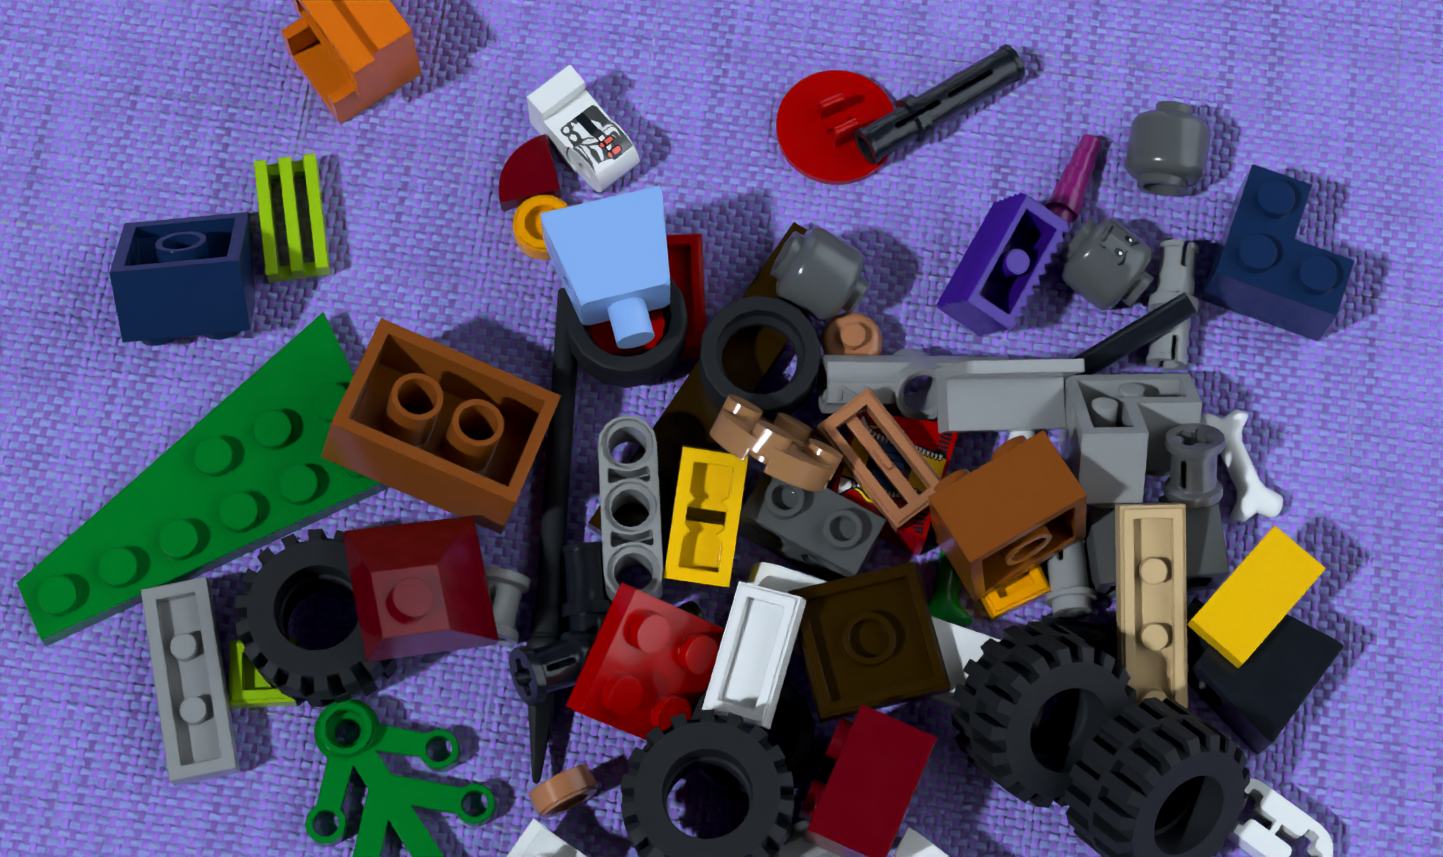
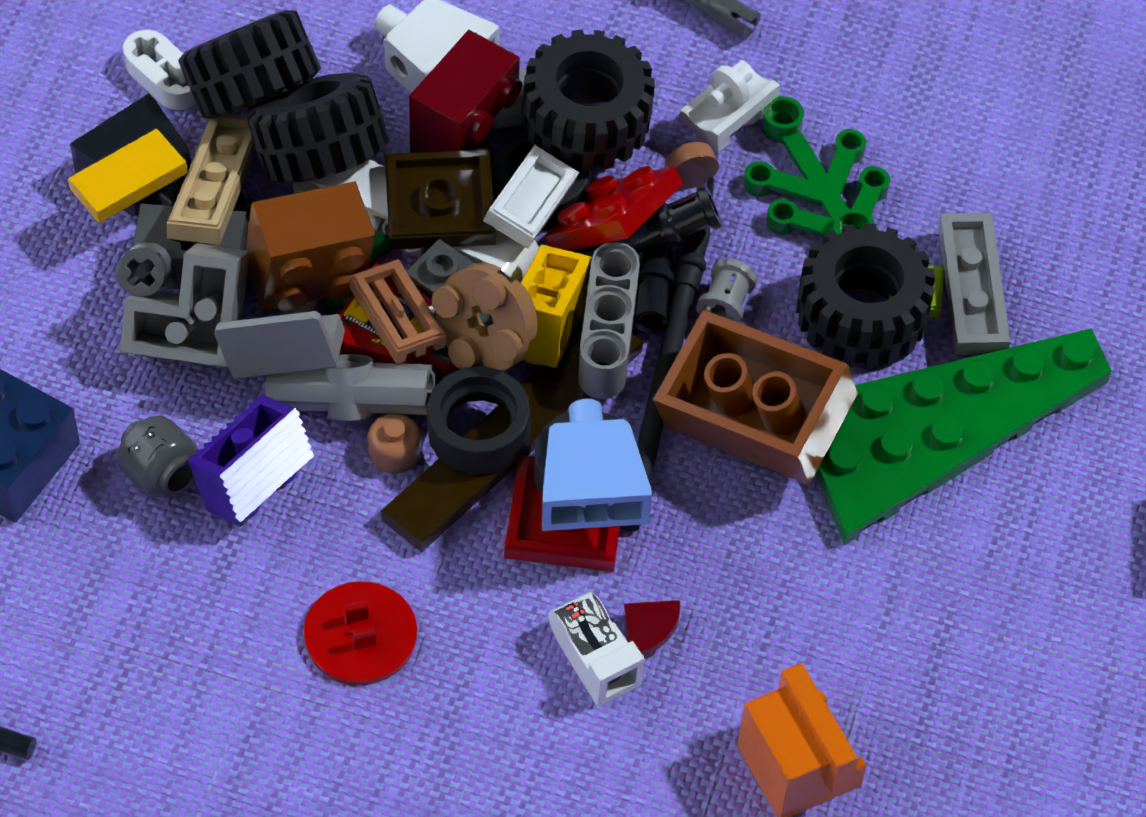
camera: 170 degrees left, 15 degrees down
(184, 278) = (965, 580): dark blue slope -> none
(286, 171) = (867, 585): lime tile -> none
(420, 588) = (786, 266): dark red slope -> none
(528, 226) = (642, 580): light orange tile -> none
(819, 274) = (412, 472): dark grey head -> none
(937, 106) = (254, 625): black pin -> none
(1070, 190) = (164, 539): magenta animal -> none
(1136, 334) = (176, 391): black bar -> none
(1167, 149) = (71, 540): dark grey head -> none
(1174, 277) = (108, 425): light grey pin -> none
(1251, 493) = (98, 328): white piece -> none

